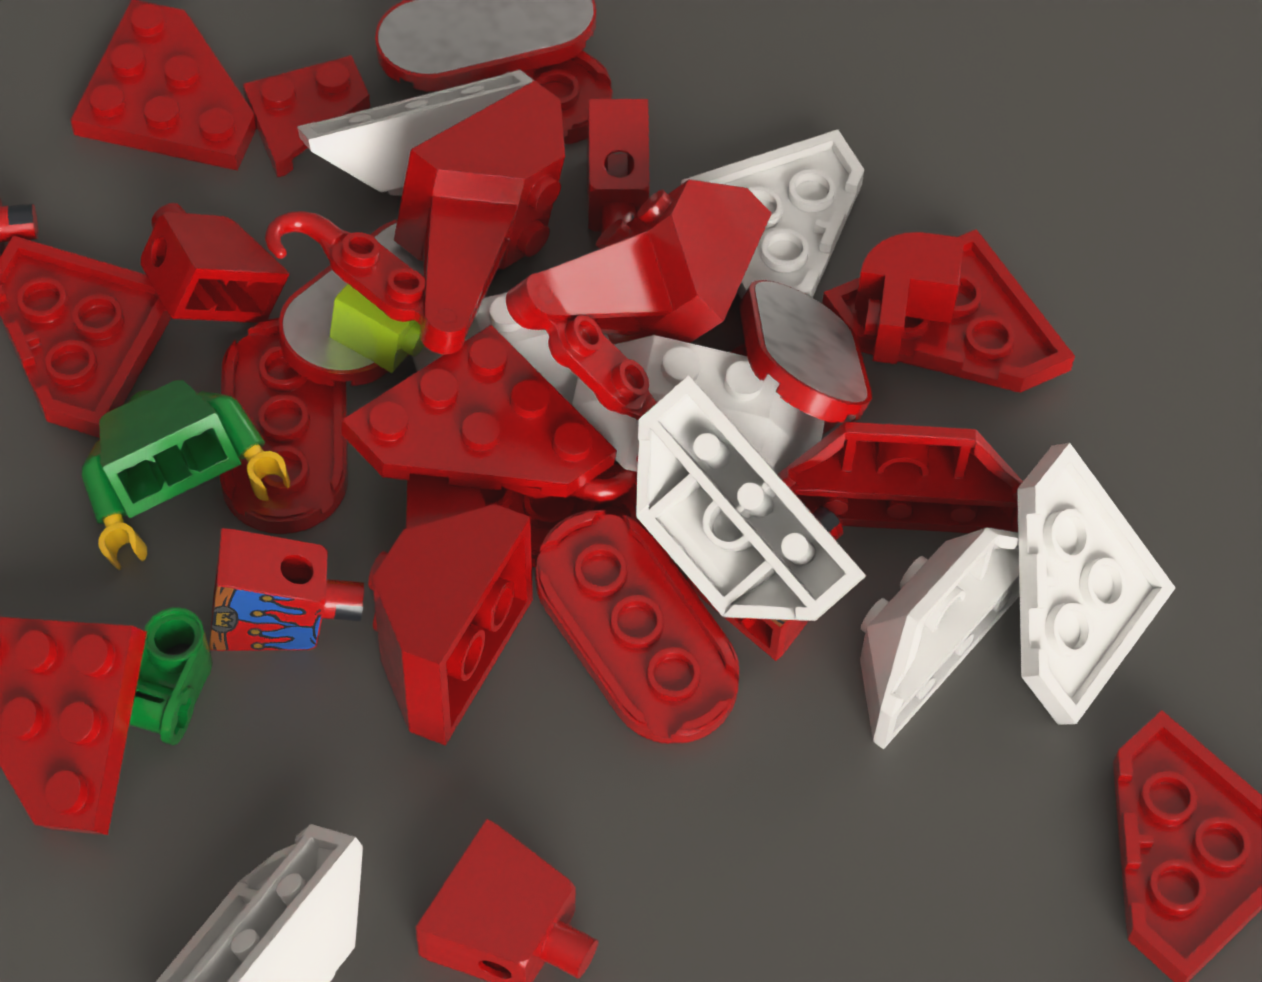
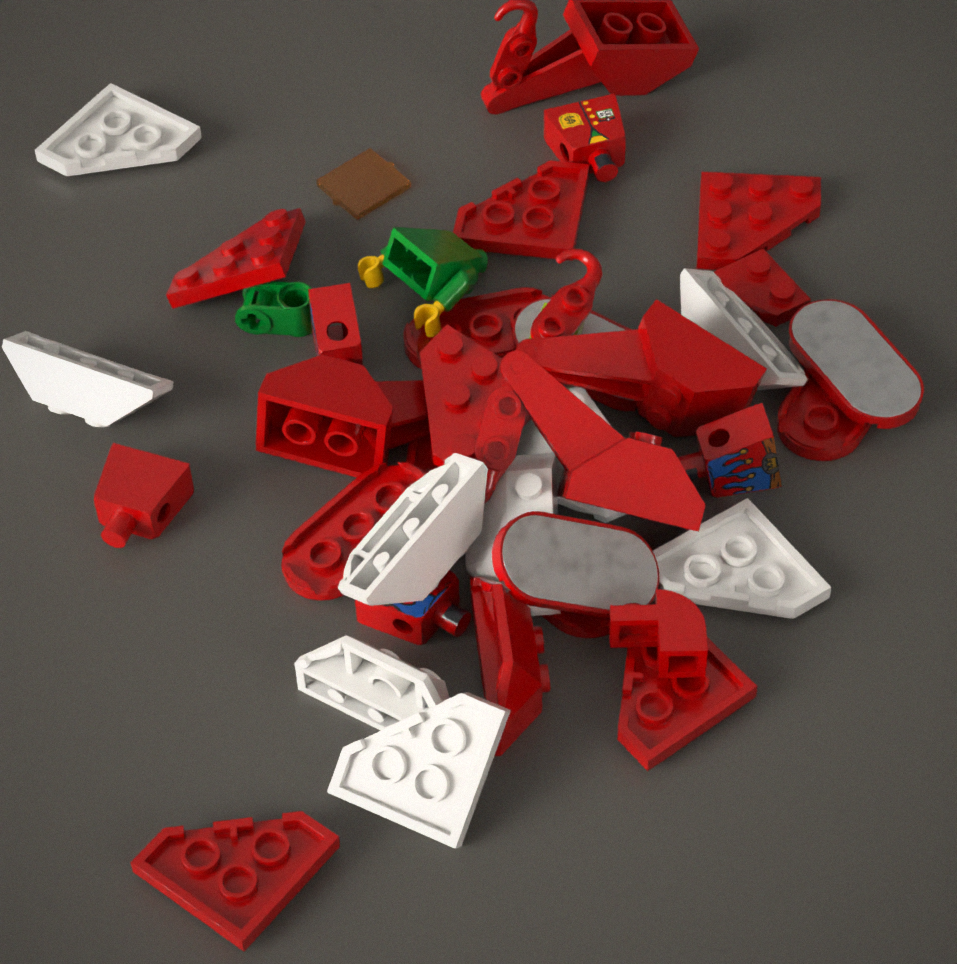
camera: 85 degrees right, 5 degrees down
(210, 268) = (588, 233): red torso -> none

